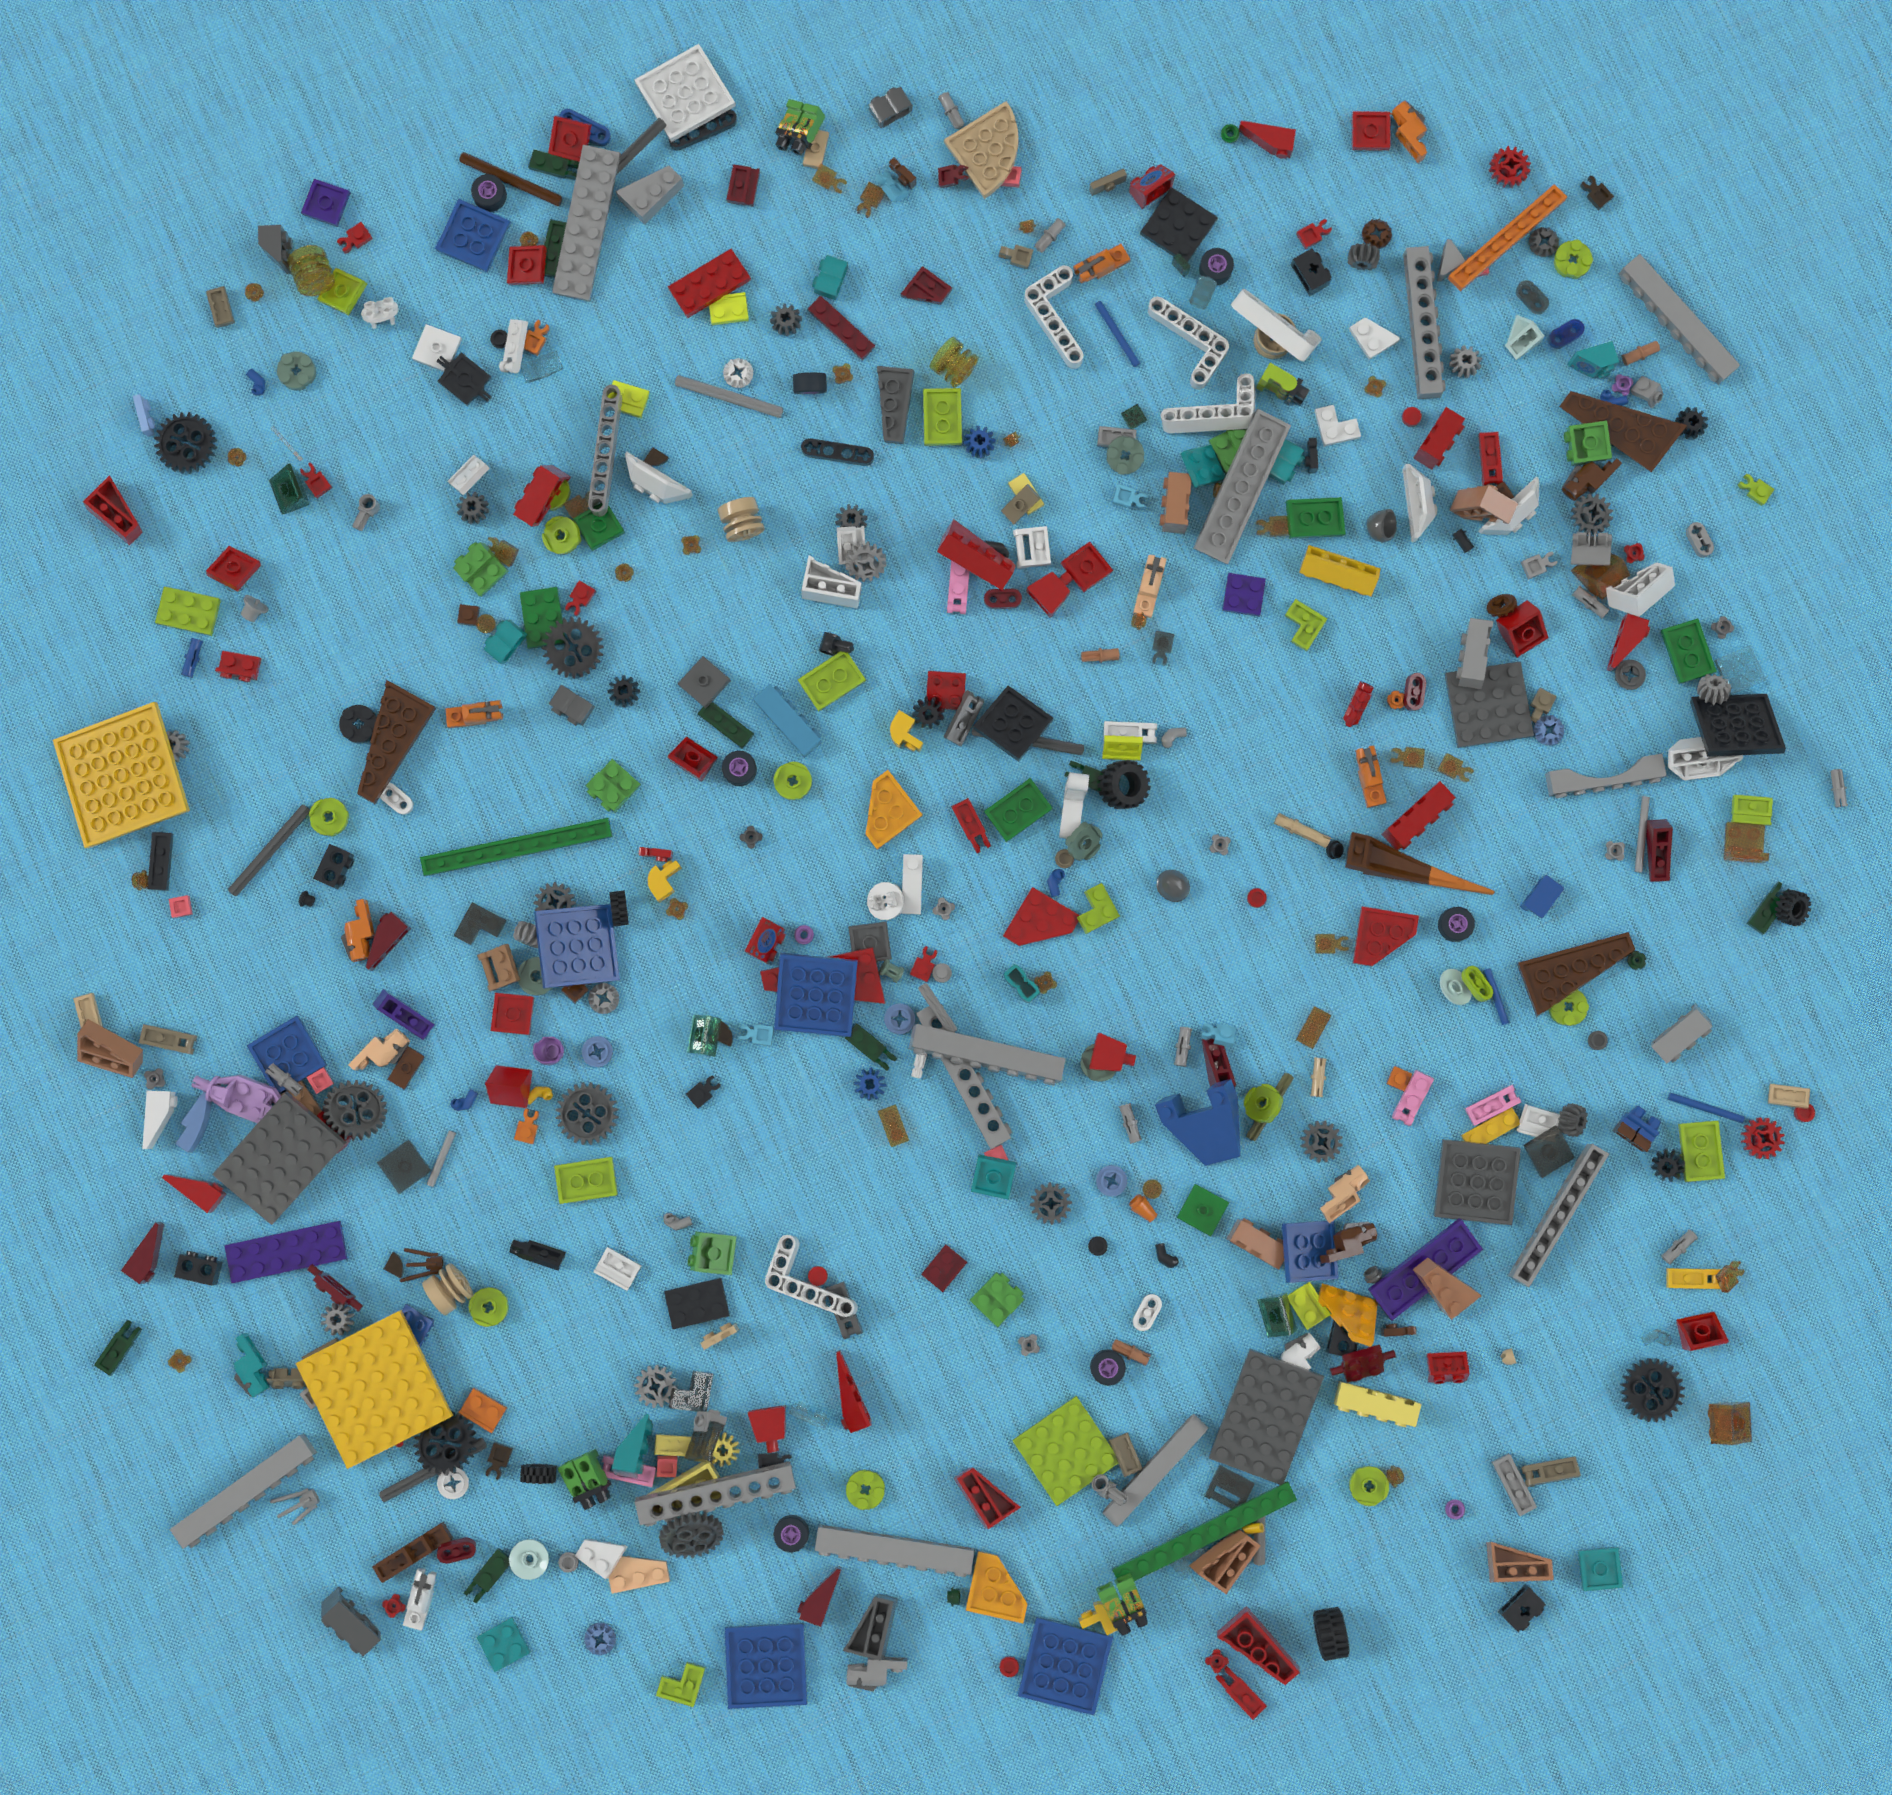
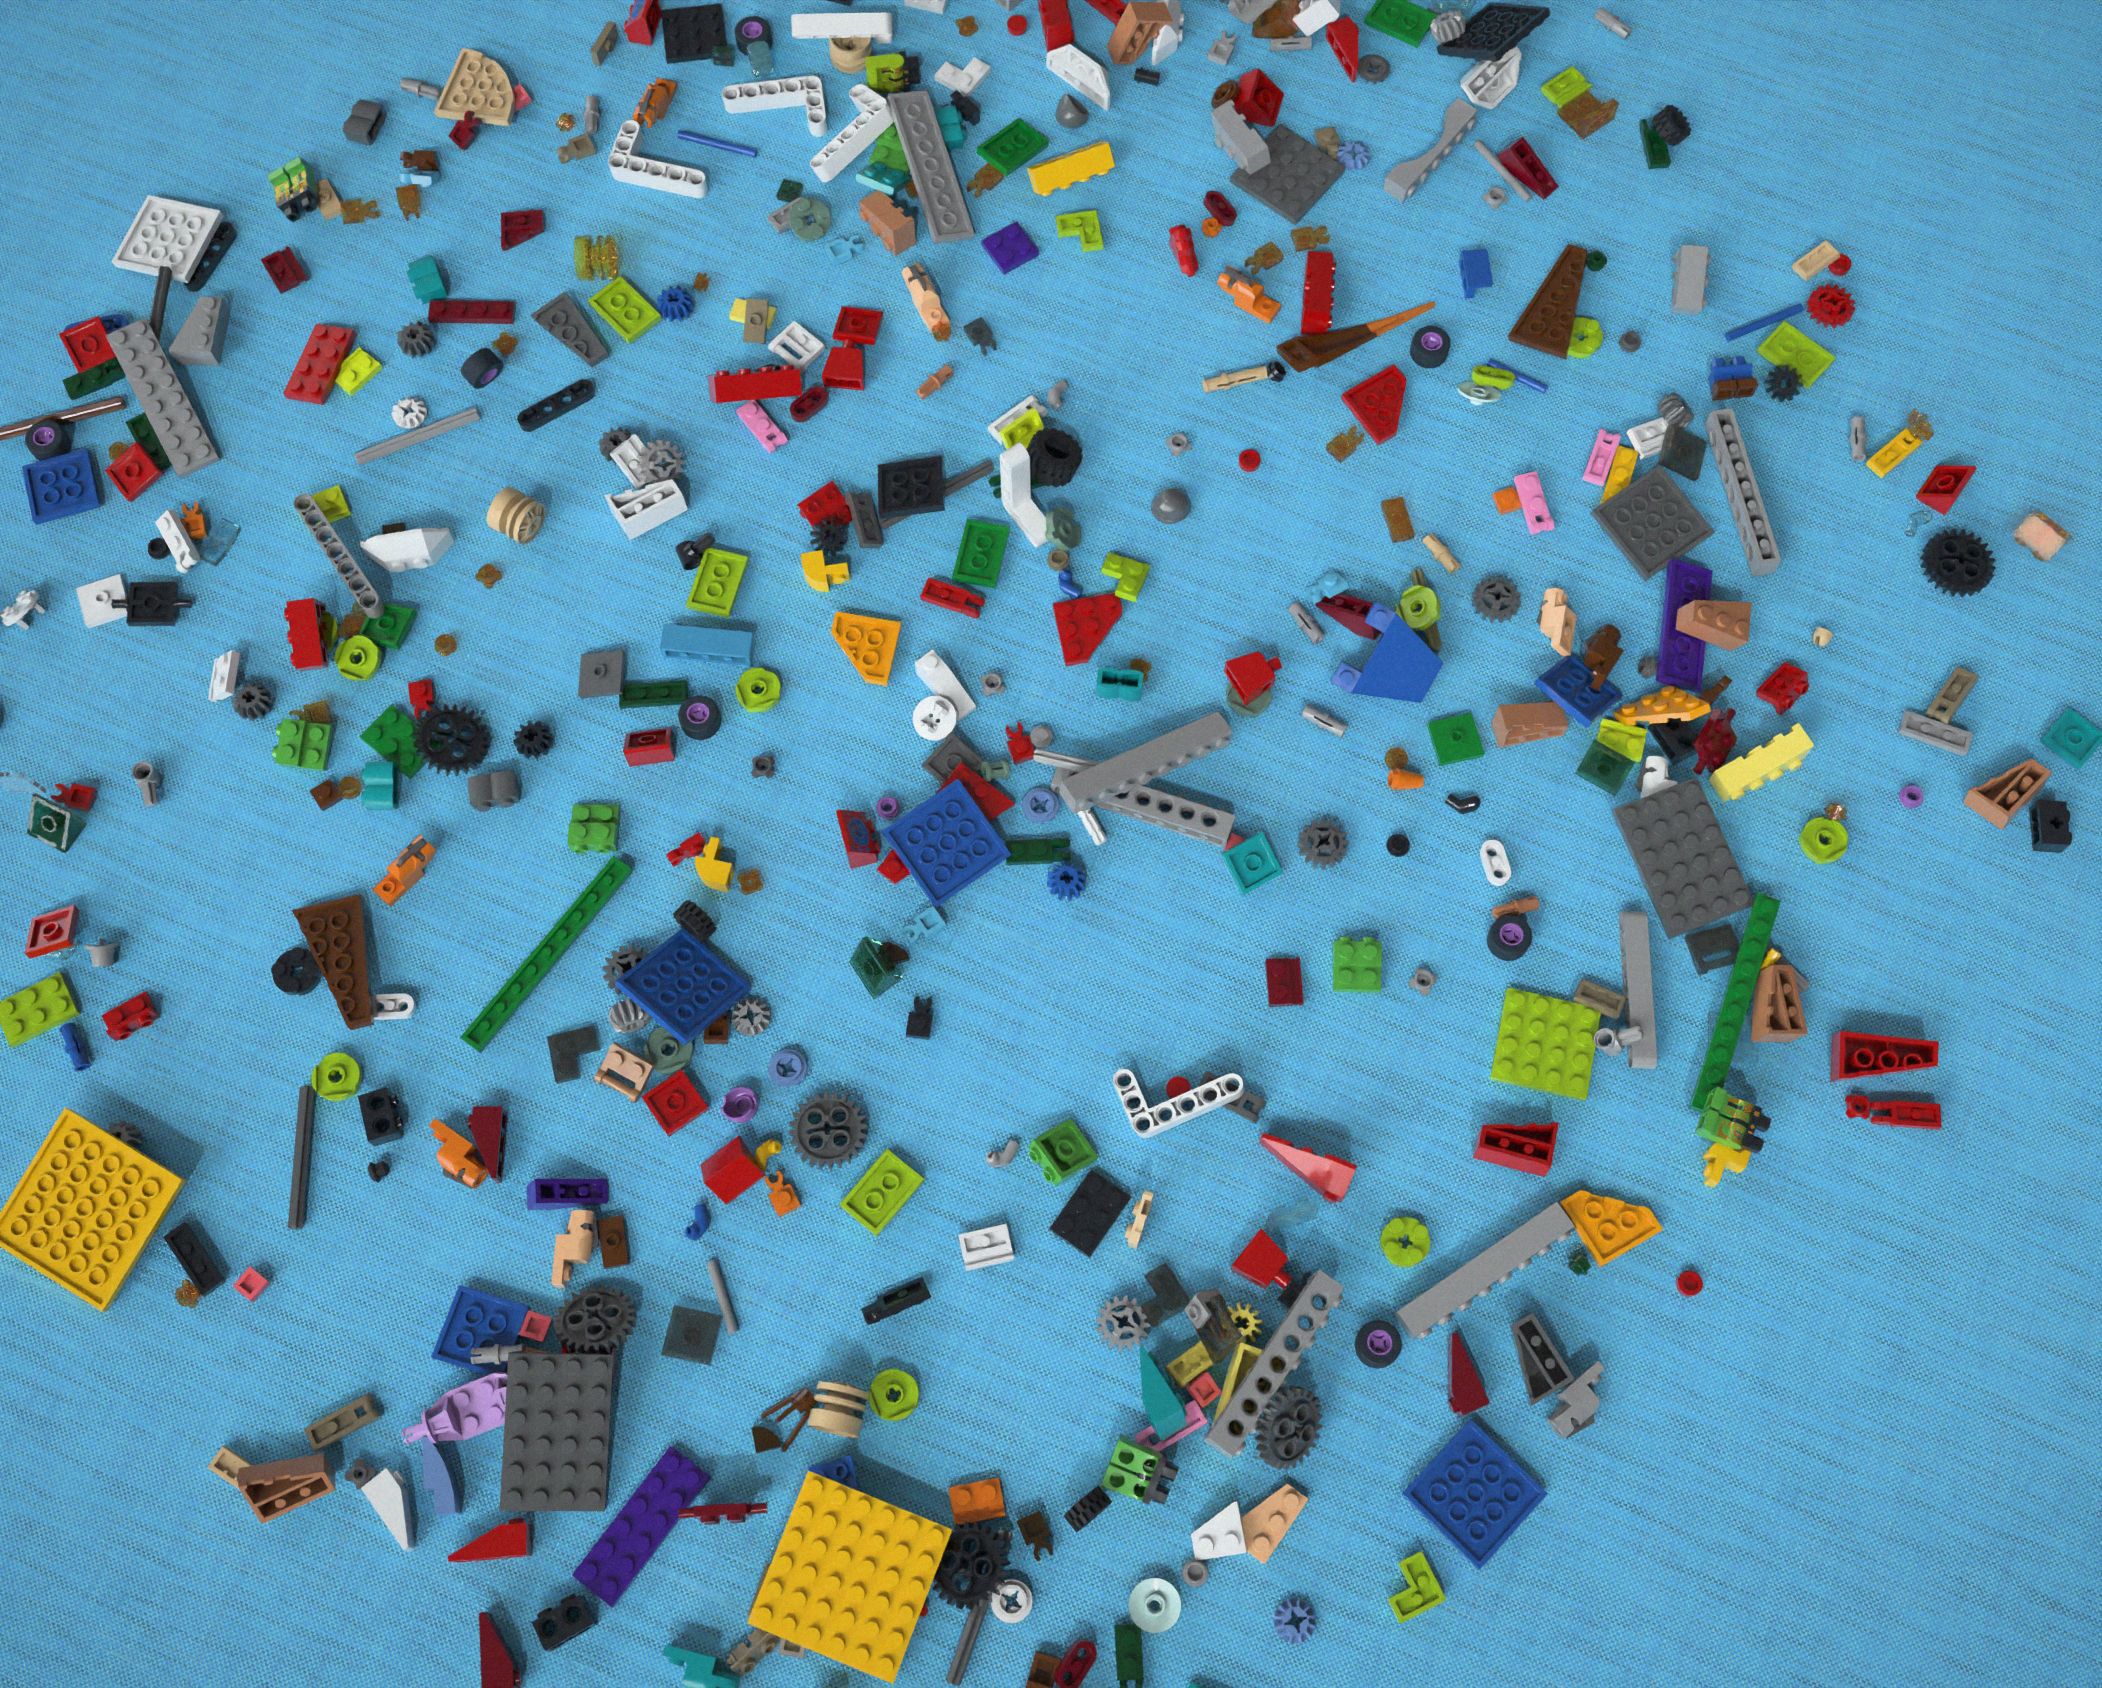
camera: 40 degrees left, 15 degrees down
(340, 1326) = (743, 1540): light grey gear -> none
(893, 1125) = (1121, 899): clear orange plate -> none
(1065, 1666) = (1737, 1234): blue plate -> none
(1120, 1178) = (1361, 774): medium blue gear -> none
(1331, 1633) = (1927, 985): black tyre -> none

